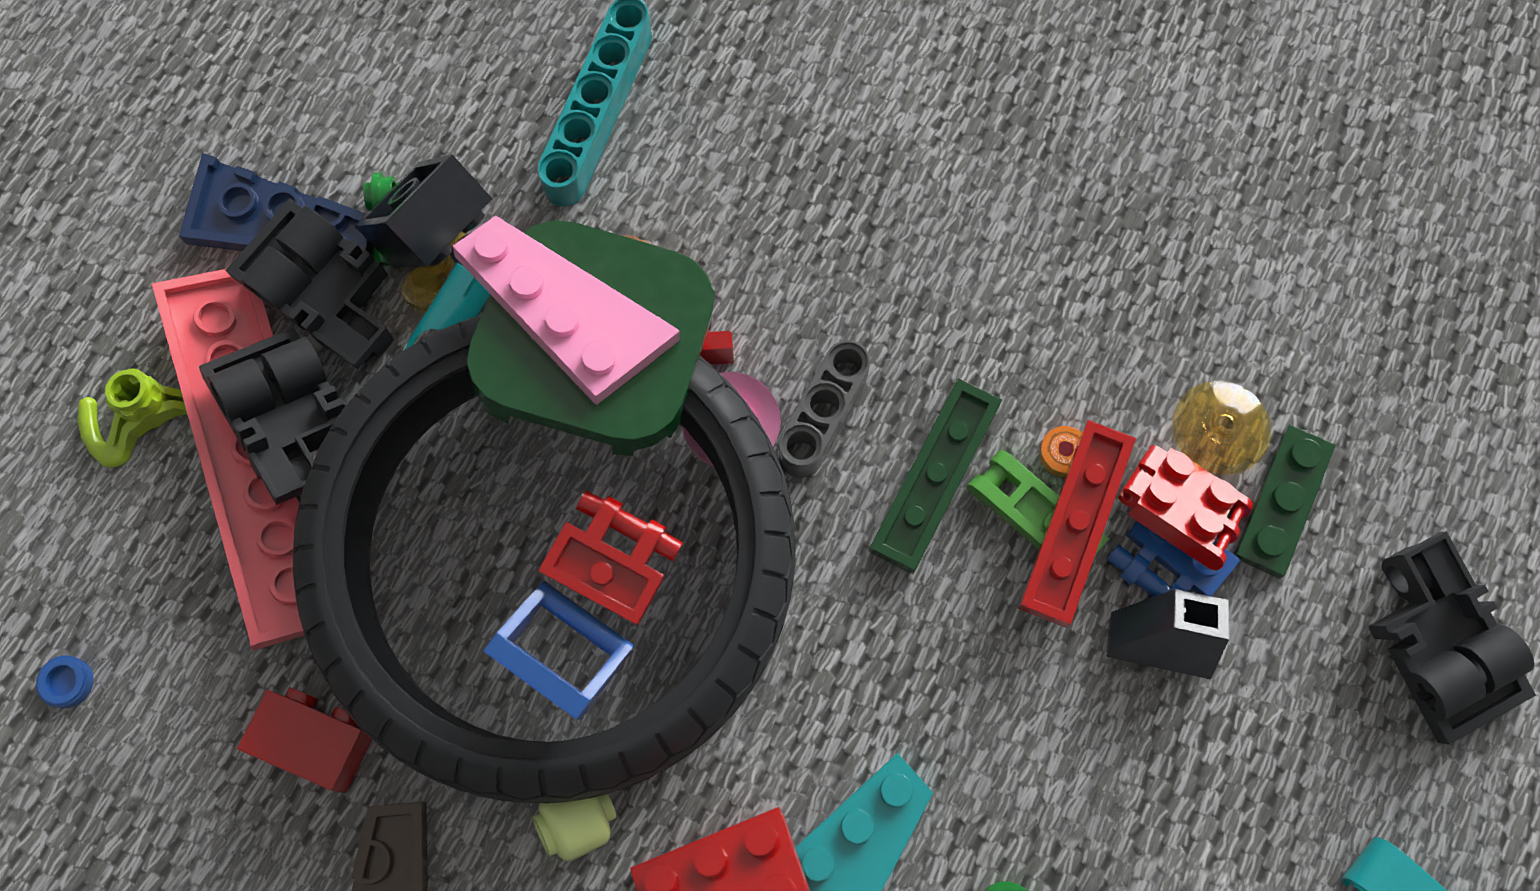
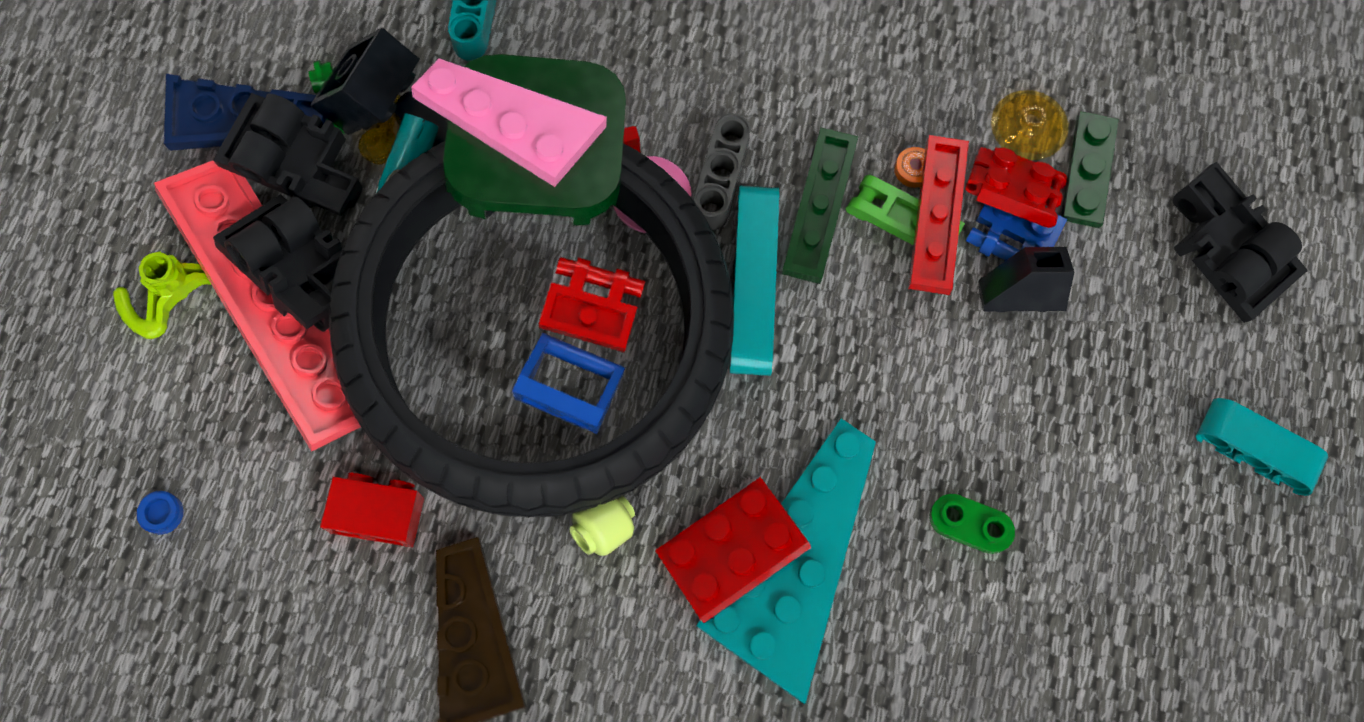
camera: 15 degrees left, 0 degrees up
(831, 555) = (755, 280): none -> teal beam

